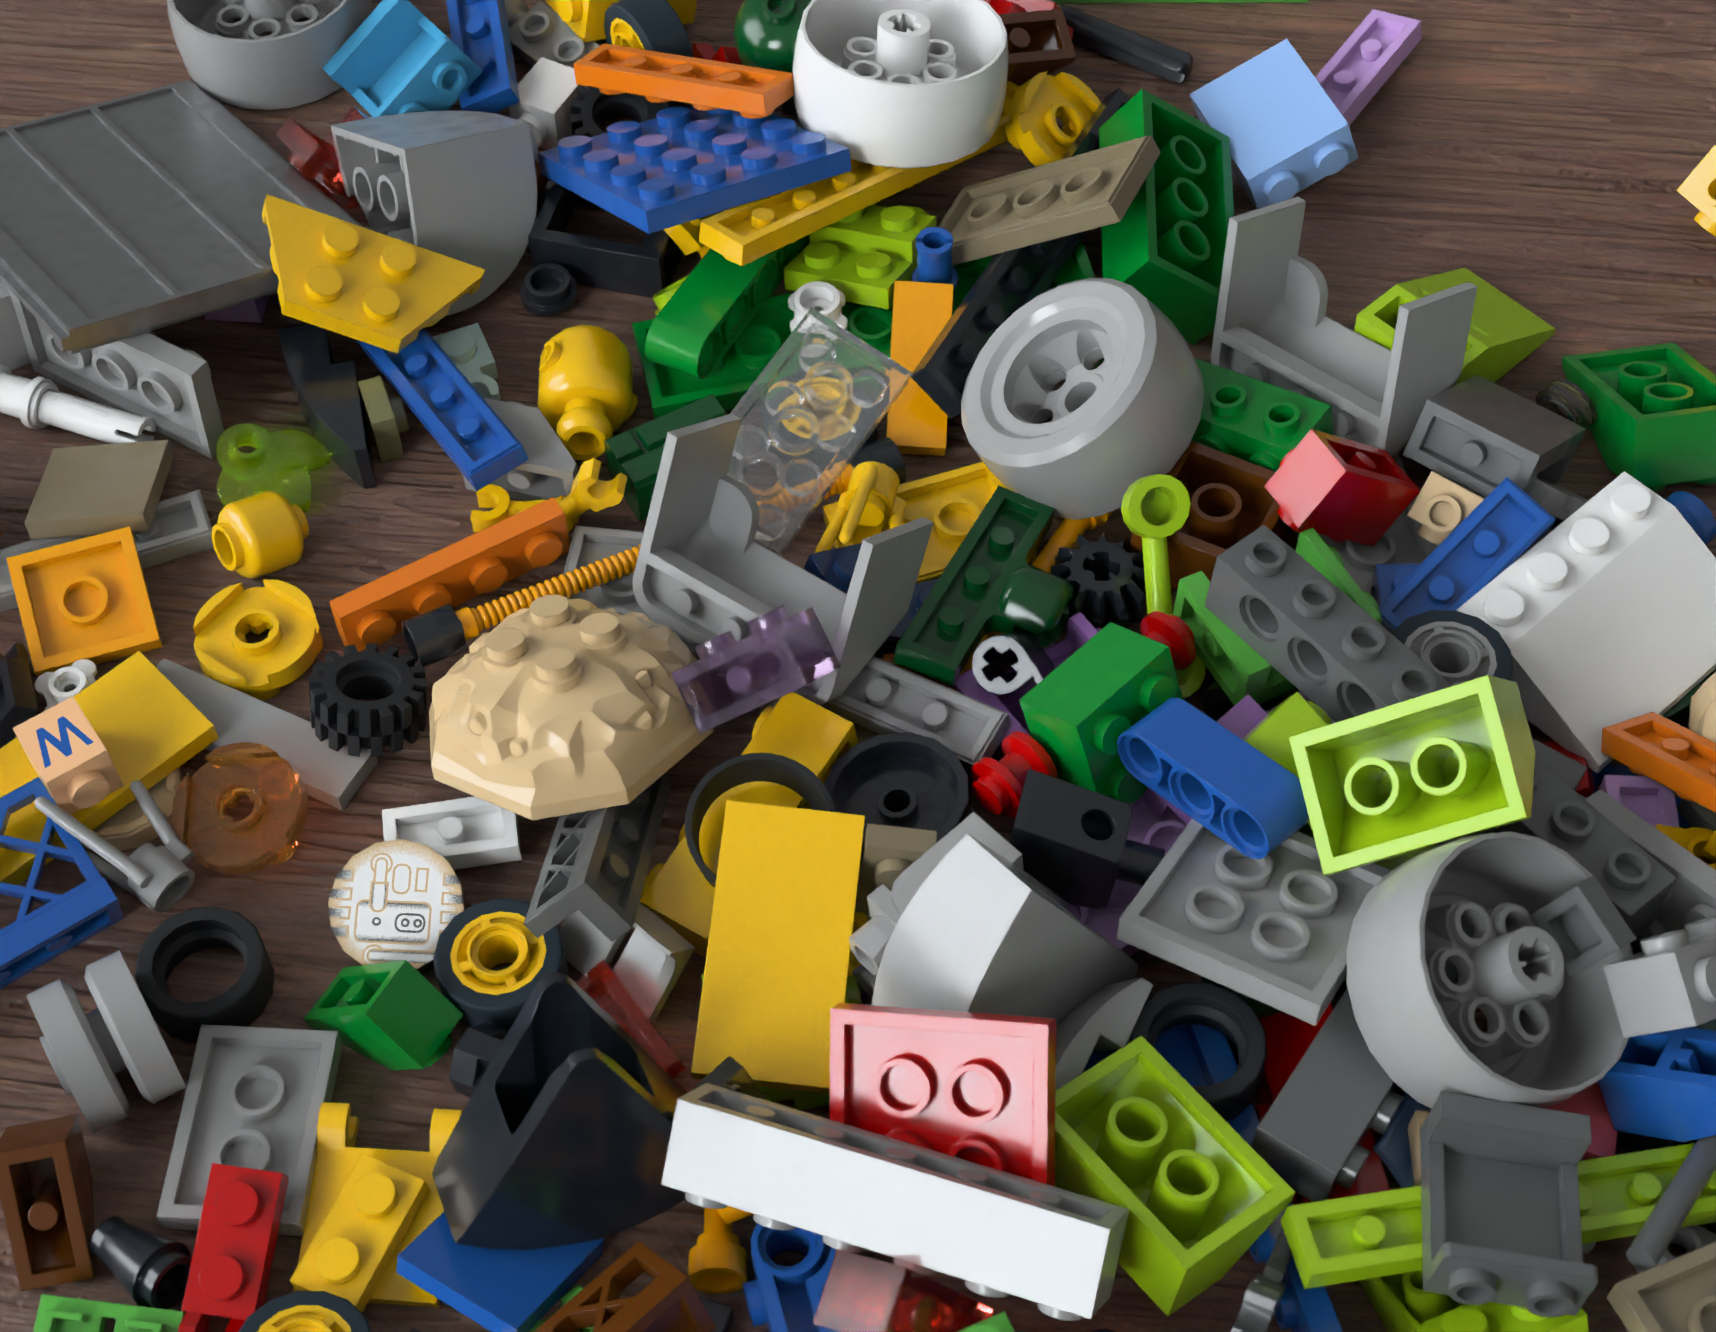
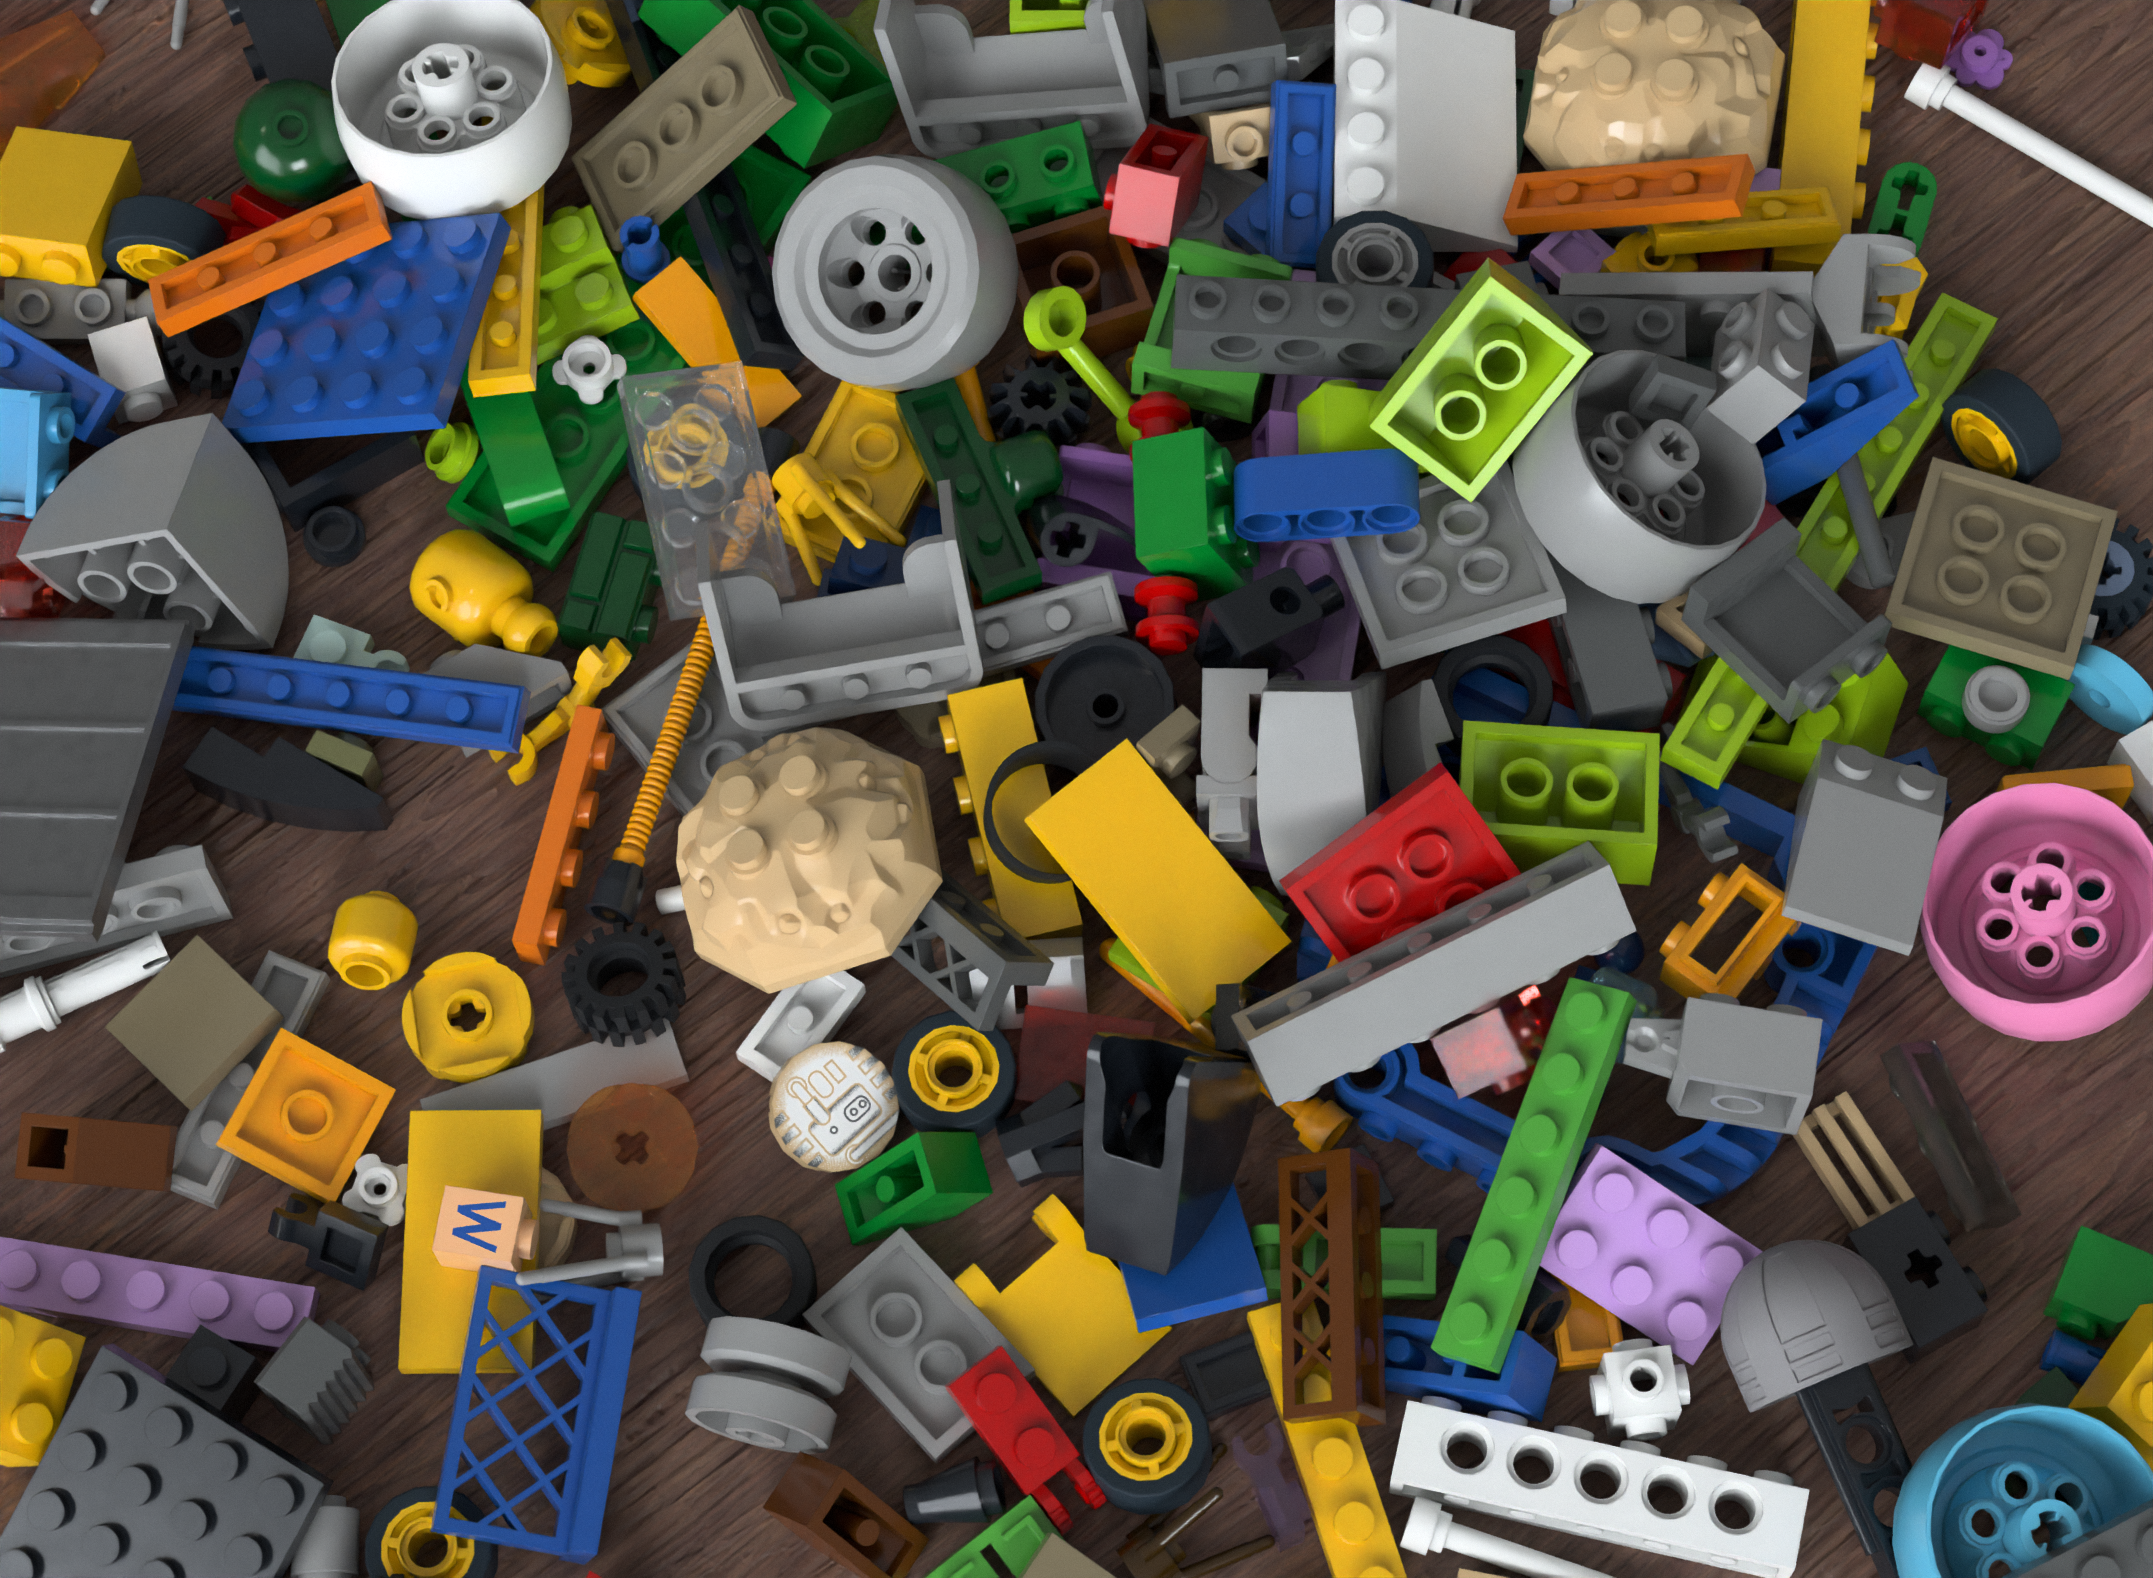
camera: 45 degrees left, 15 degrees up
(276, 466) = (308, 885): clear neon green plate -> none
(360, 278) = (222, 667): yellow wing -> none
(361, 1231) = (1078, 1334): yellow plate -> none
(757, 669) = (931, 702): clear purple brick -> none

